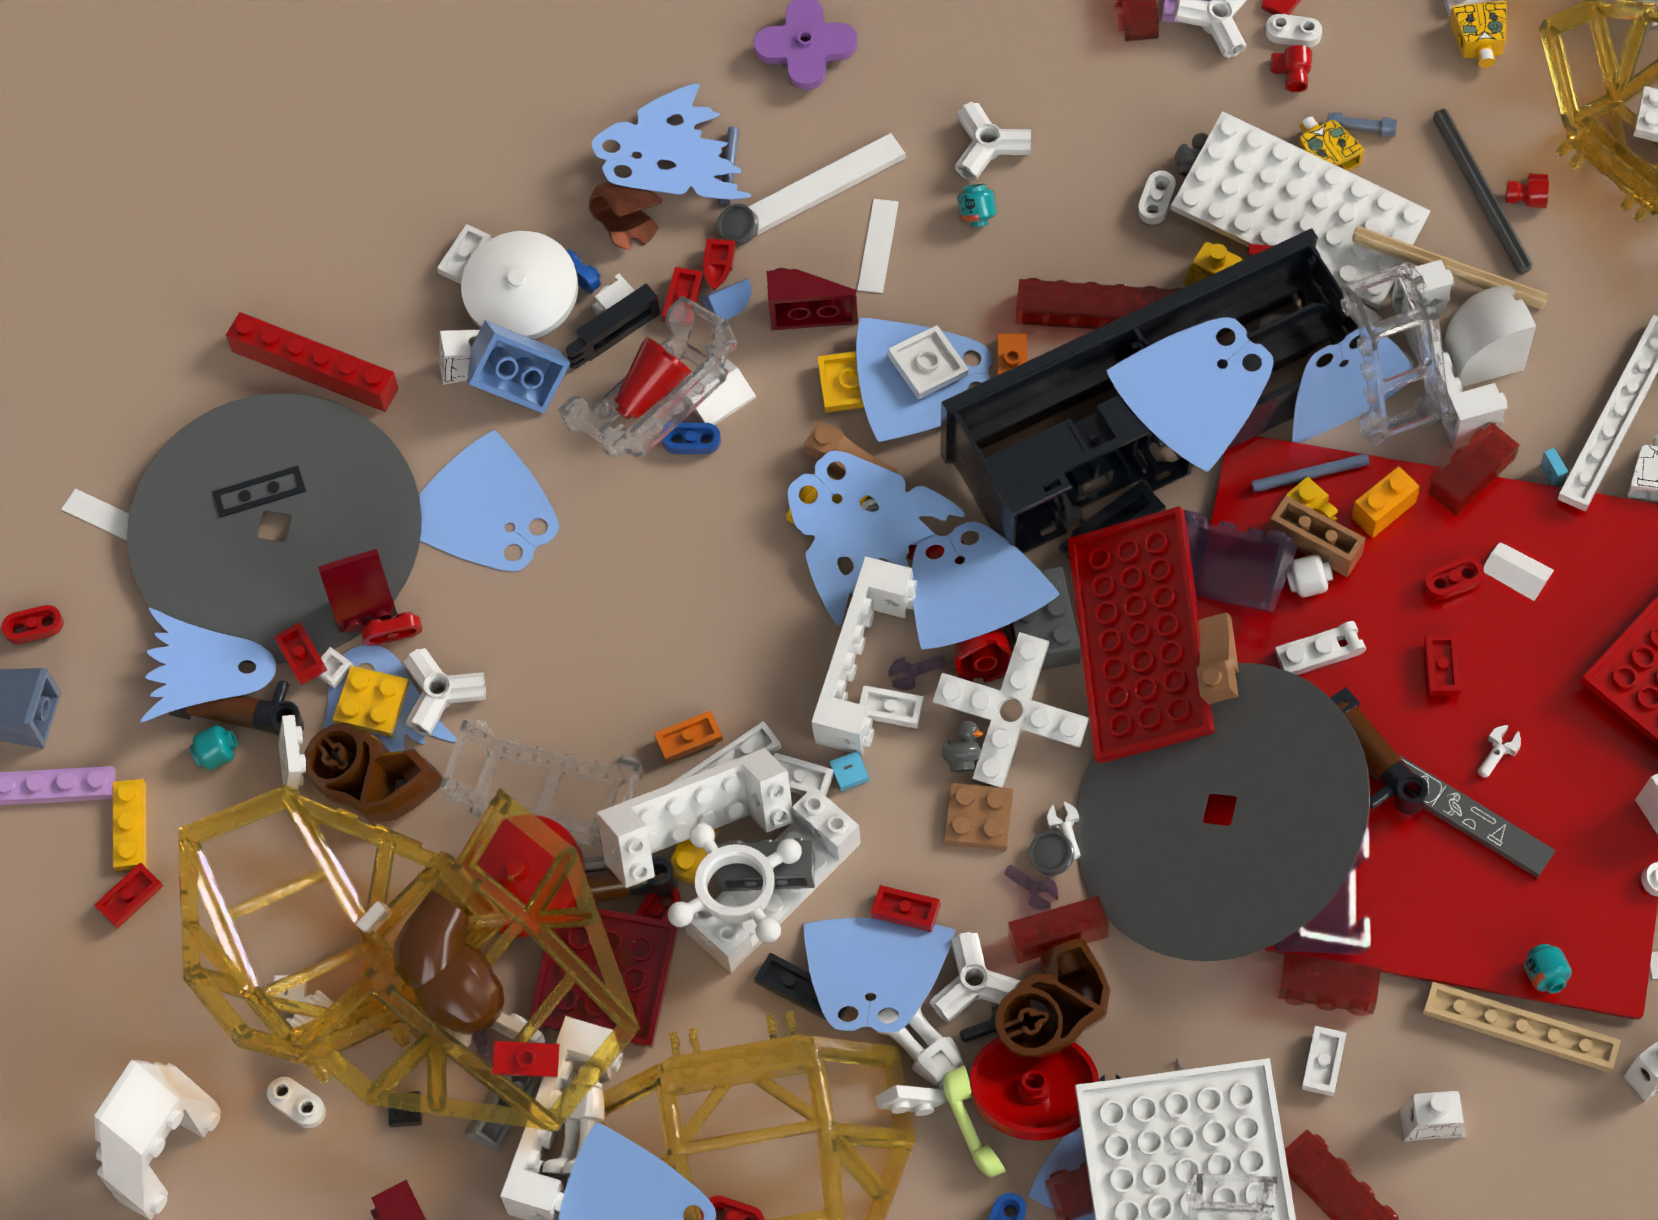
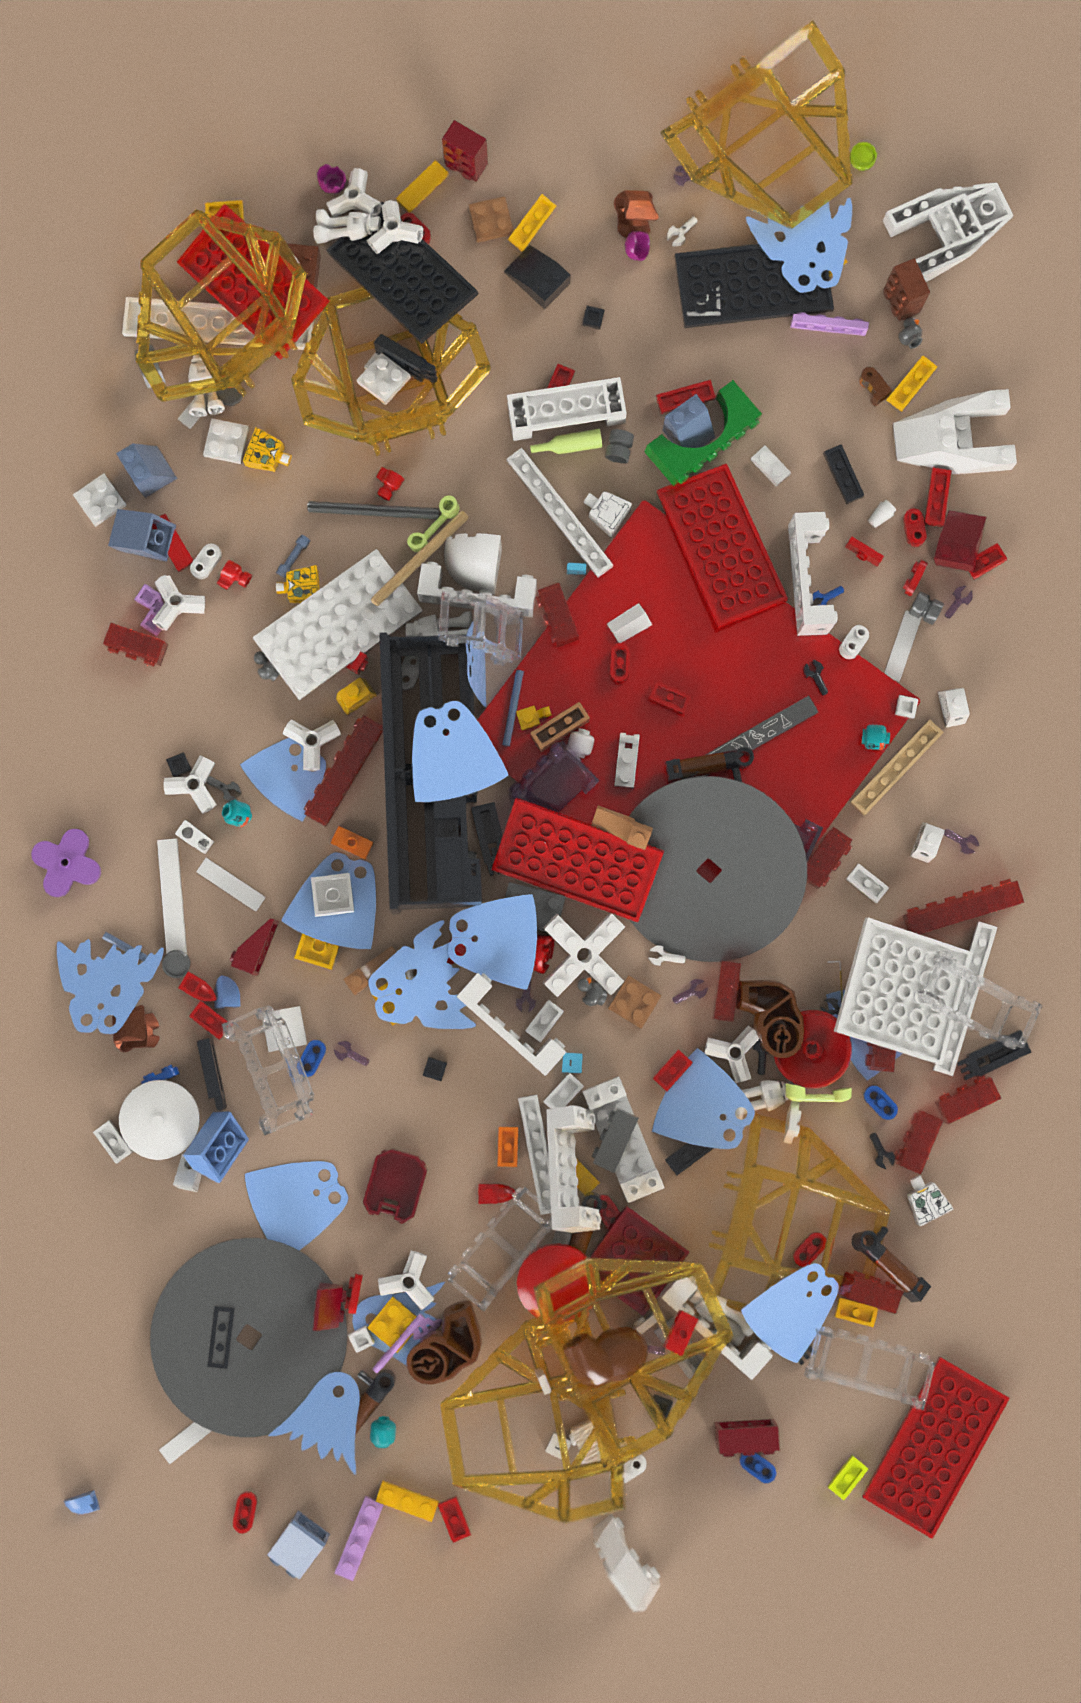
camera: 70 degrees left, 20 degrees up
(291, 761) = (422, 1391): white plate -> none
(300, 653) = (345, 1355): red plate -> none
(312, 361) = (145, 1269): red brick -> none
(375, 718) = (411, 1329): none -> lavender piece
(576, 613) = (398, 1178): none -> dark red piece
(610, 743) = (494, 1193): none -> red plate
(611, 294) = (192, 1064): white brick -> none
(649, 379) = (266, 1068): red cone -> none
(703, 836) = (633, 1205): white piece -> none
(721, 484) = (351, 1054): none -> clear purple bar
(752, 599) = (434, 1069): none -> black tile
(918, 170) = (194, 837): none -> white leg
(1003, 181) = (223, 787): none -> dark grey bar
(1006, 115) = (179, 764): none -> black tile
(1051, 233) = (273, 777): none -> light blue piece
(1051, 852) = (677, 972): dark grey piece -> none
(1124, 238) = (301, 734): none -> white piece
(1156, 199) = (283, 703): white plate -> none
(1385, 502) = (555, 676): light orange brick -> none
(1464, 1174) = (962, 841): none -> clear purple bar
(1499, 750) = (735, 695): white bar -> none
(1541, 274) = (449, 508): none -> yellowish green piece
(1590, 851) = (816, 676): none -> black bar
(1620, 998) = (906, 706): none -> white tile

